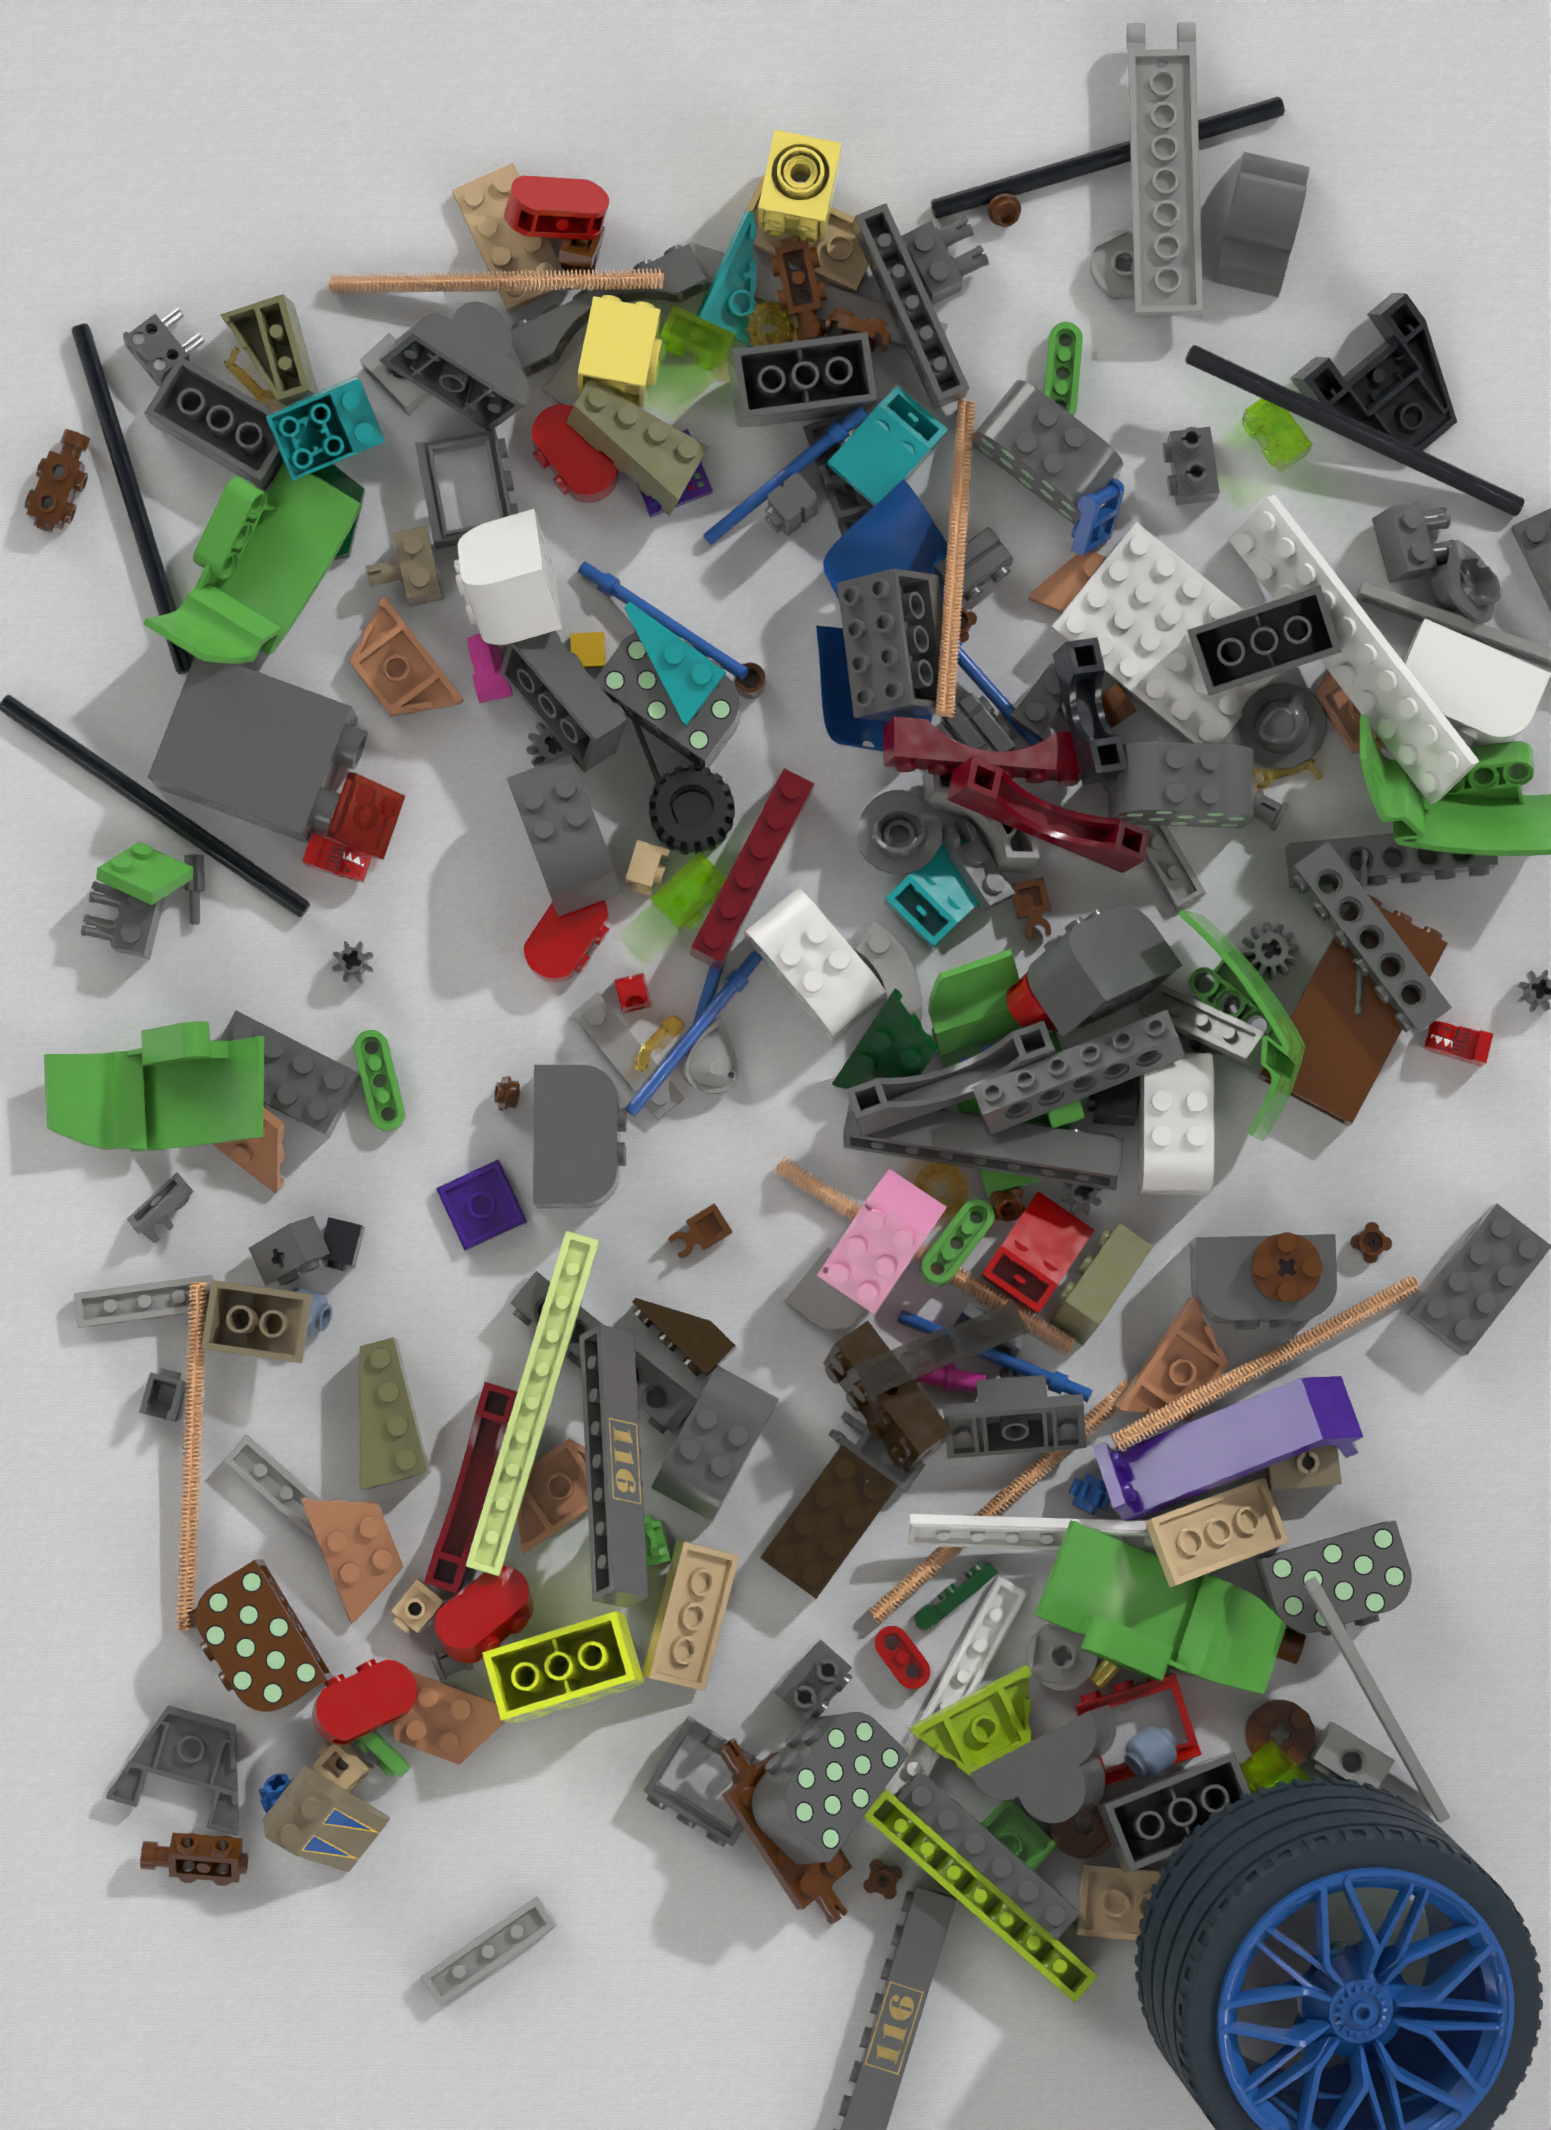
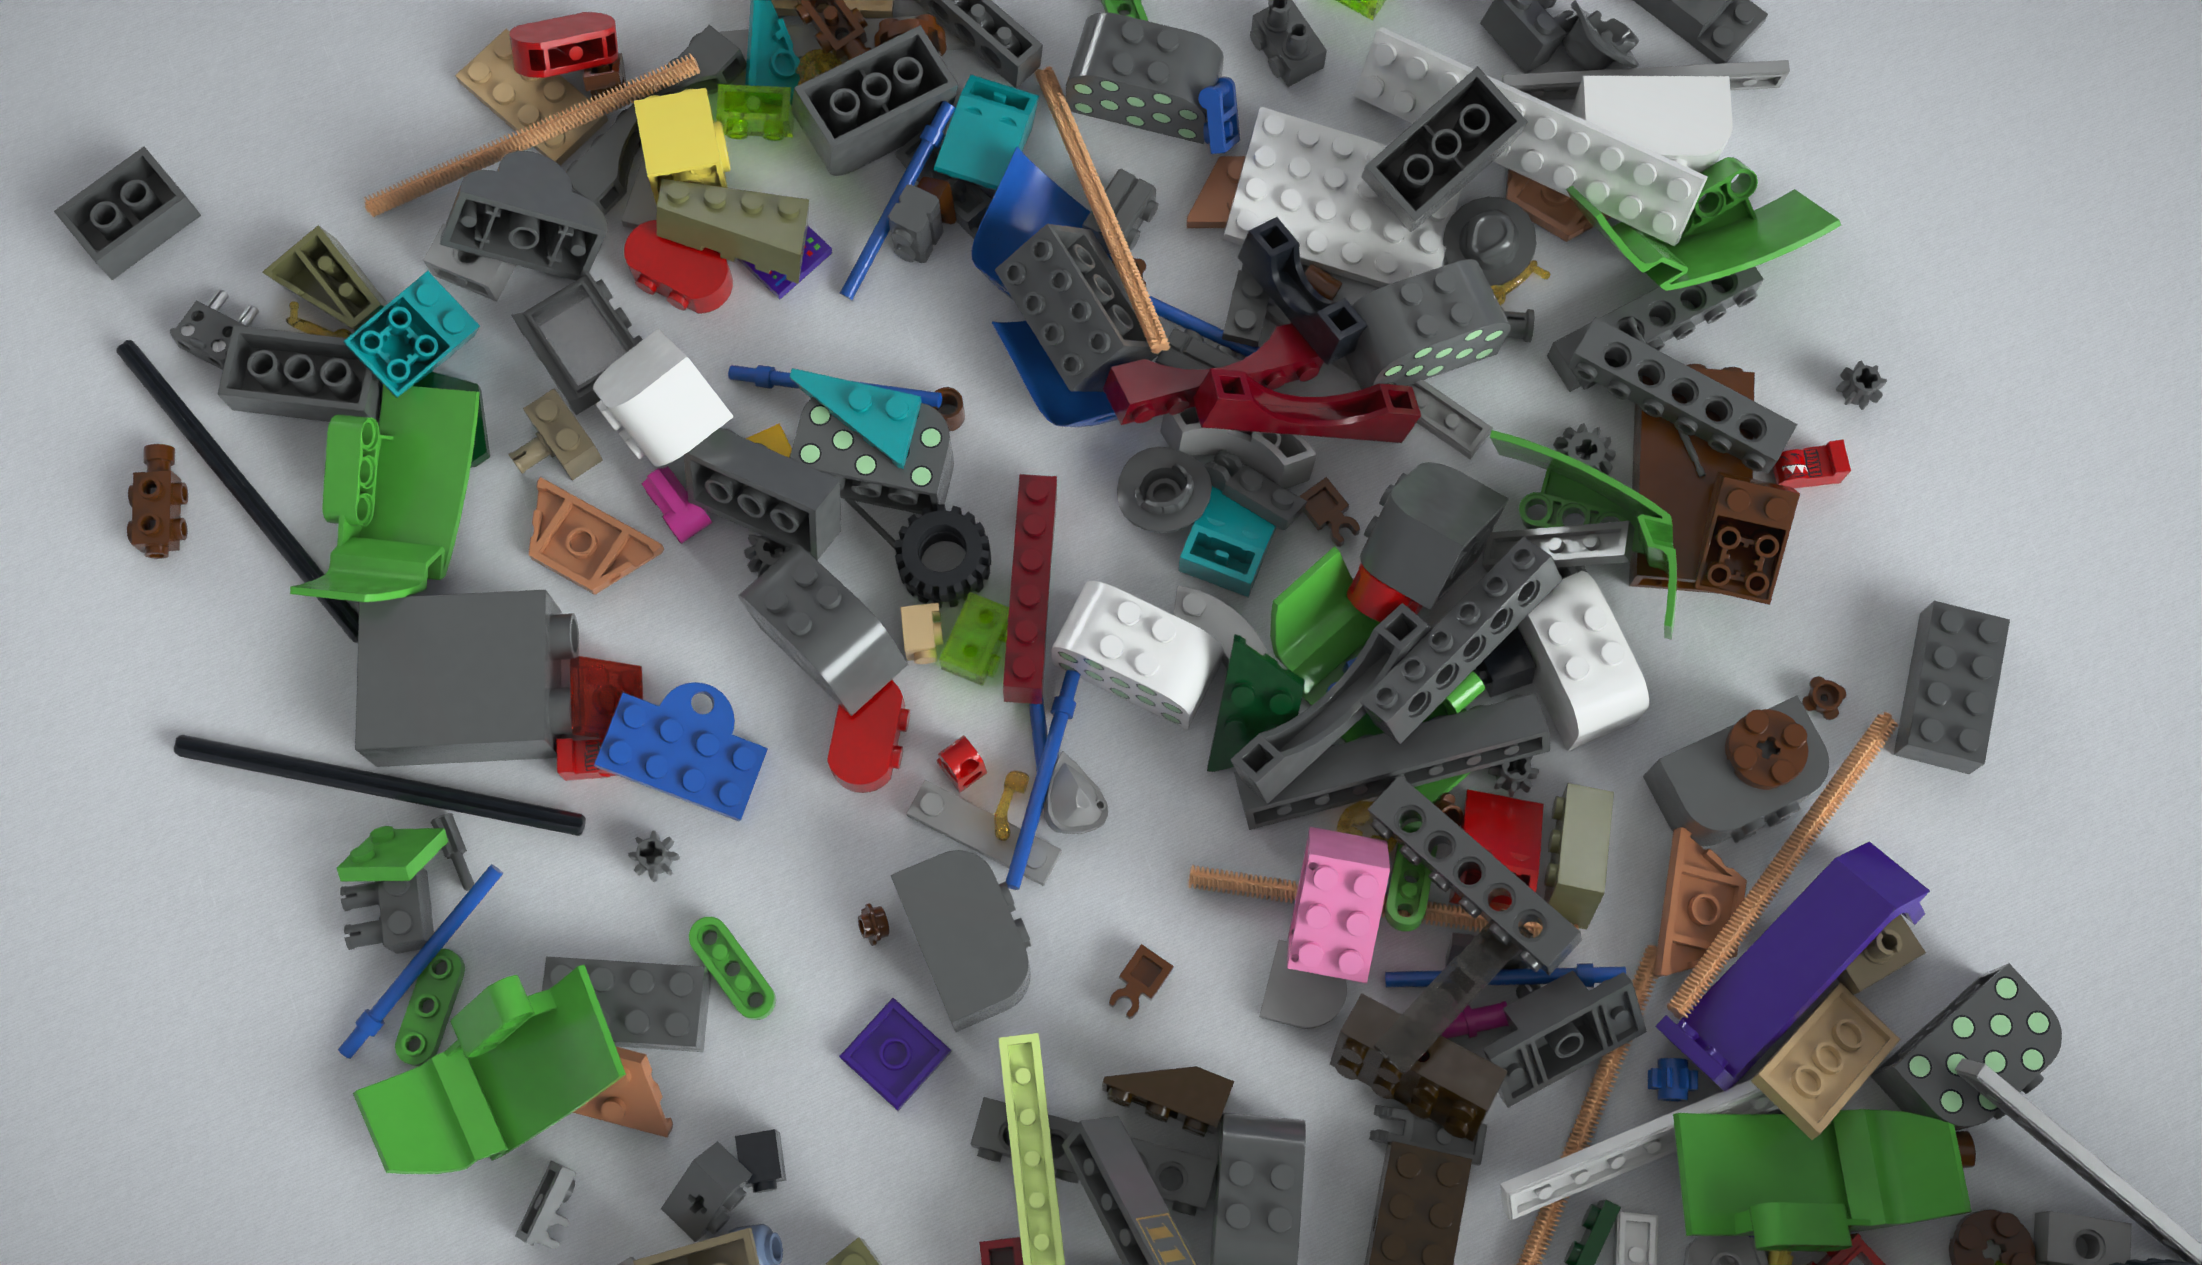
camera: 25 degrees left, 10 degrees down
(78, 998) = (372, 1020): none -> blue bar
(122, 1023) = (432, 1025): none -> bright green plate
(125, 207) = (127, 213): none -> dark grey brick
(411, 885) = (683, 750): none -> blue plate
(822, 484) = (944, 194): none -> reddish brown slope
(1040, 1343) = (1405, 802): none -> dark grey brick
(1364, 1082) = (1745, 537): none -> reddish brown slope

